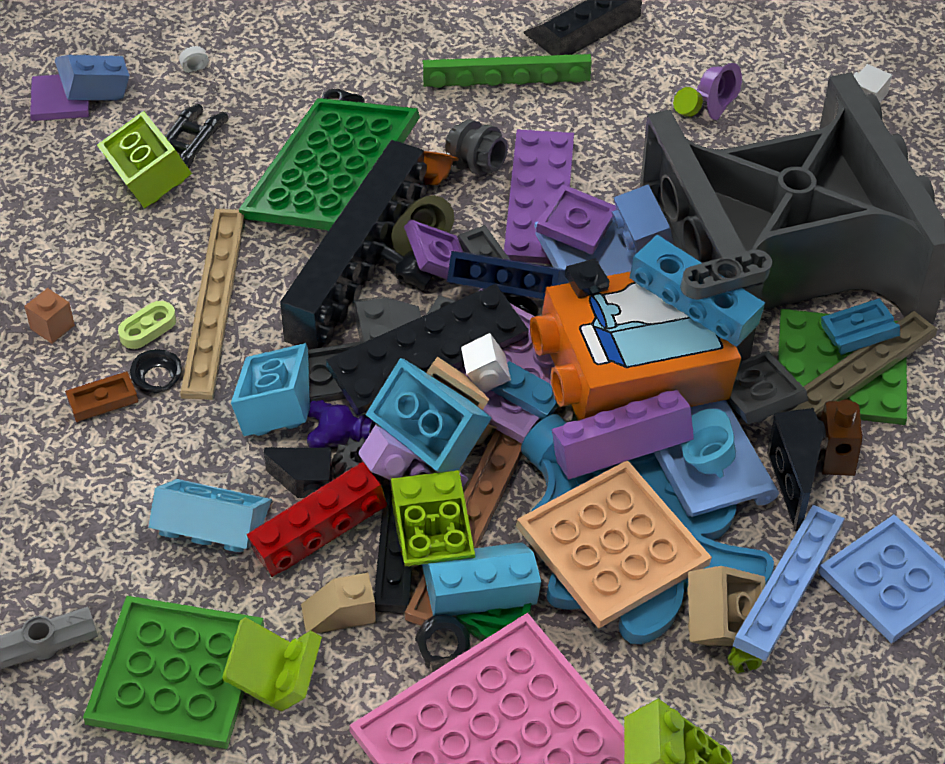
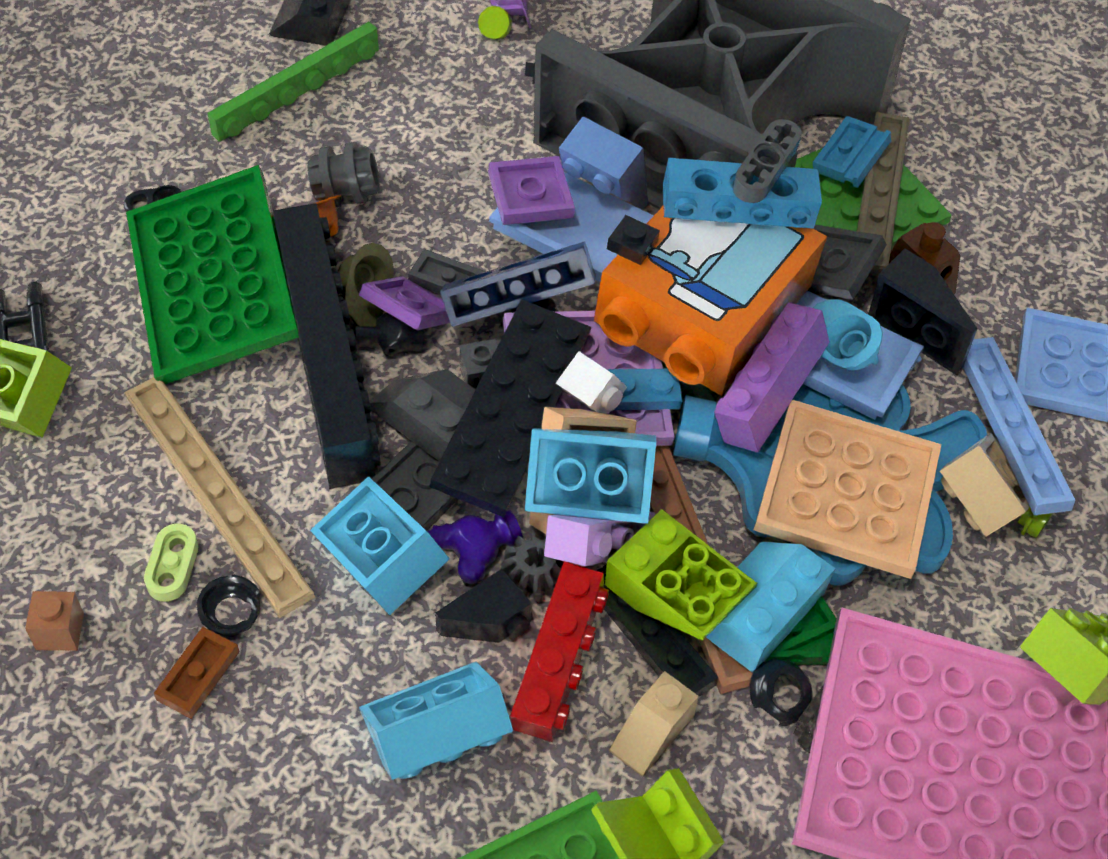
camera: 40 degrees left, 5 degrees up
(539, 169) = (439, 189): medium lavender plate -> none

